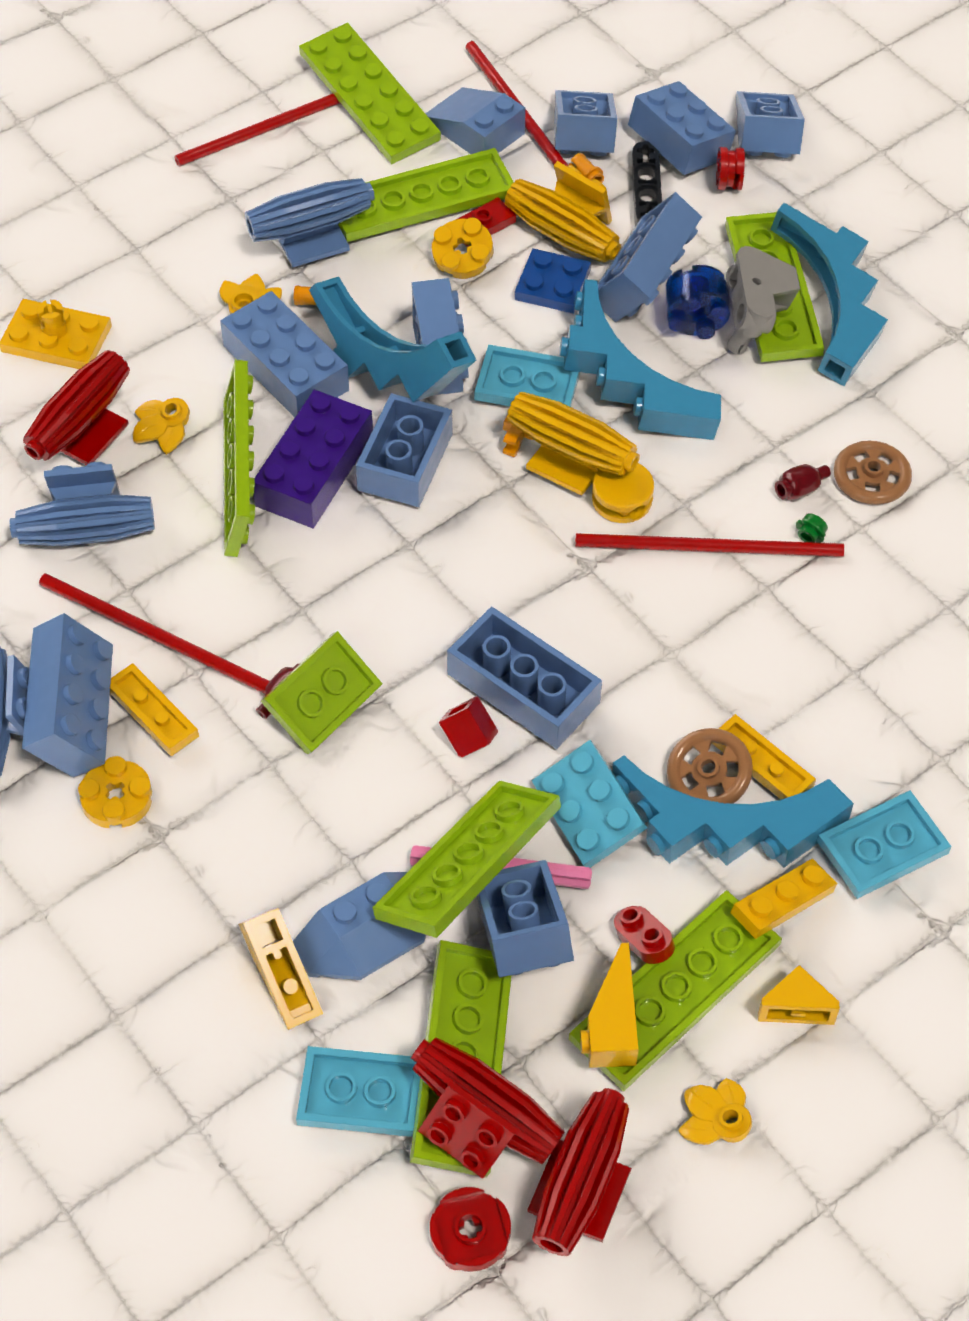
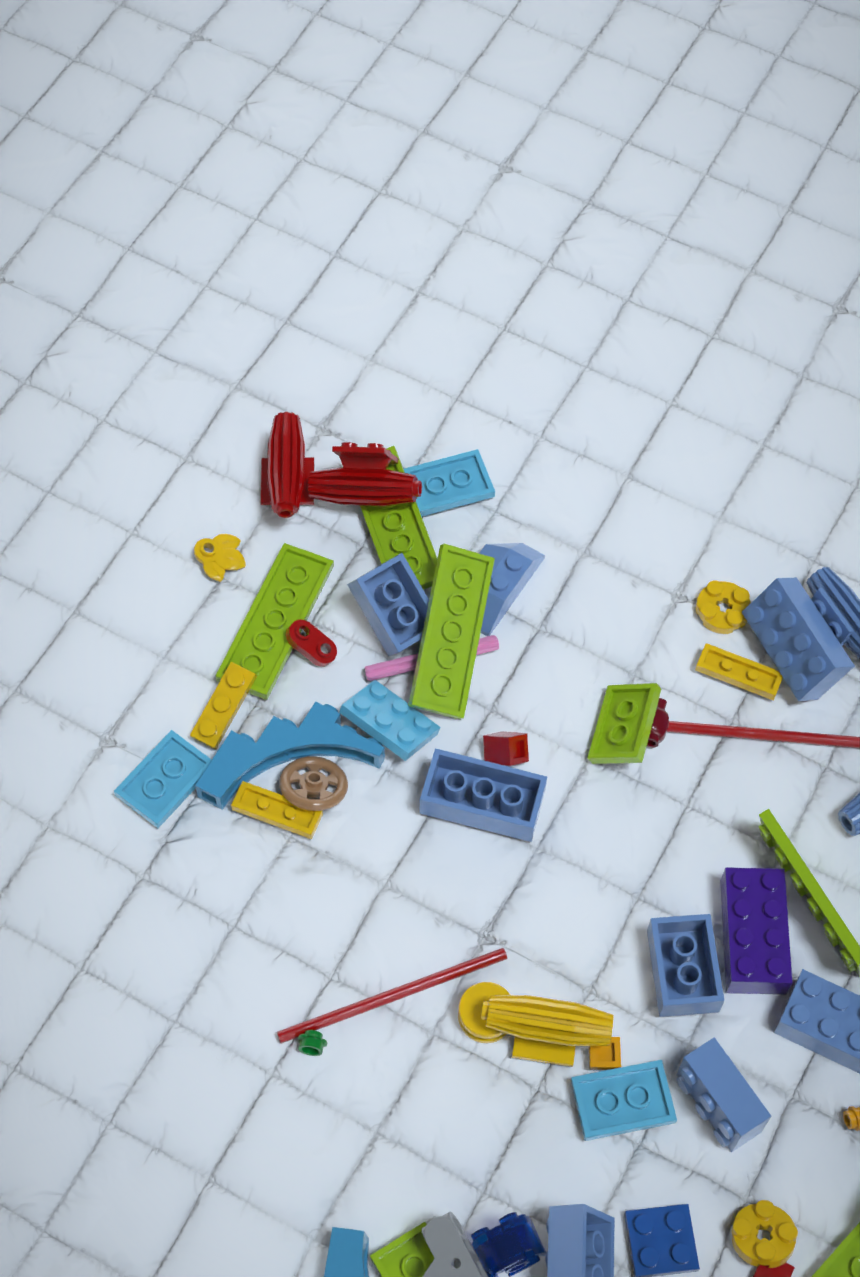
camera: 155 degrees right, 5 degrees up
(281, 967) = (544, 533): yellow slope -> none
(389, 360) = (755, 1038): dark azure arch -> none
(459, 1250) = (345, 423): red plate -> none
(612, 1020) = (304, 561): yellow slope -> none
(624, 378) = (577, 1142): dark azure arch -> none
(799, 1000) = (189, 640): yellow slope -> none
(800, 481) = (338, 1092): dark red plant -> none
(873, 450) = (258, 1119): medium nougat plate -> none

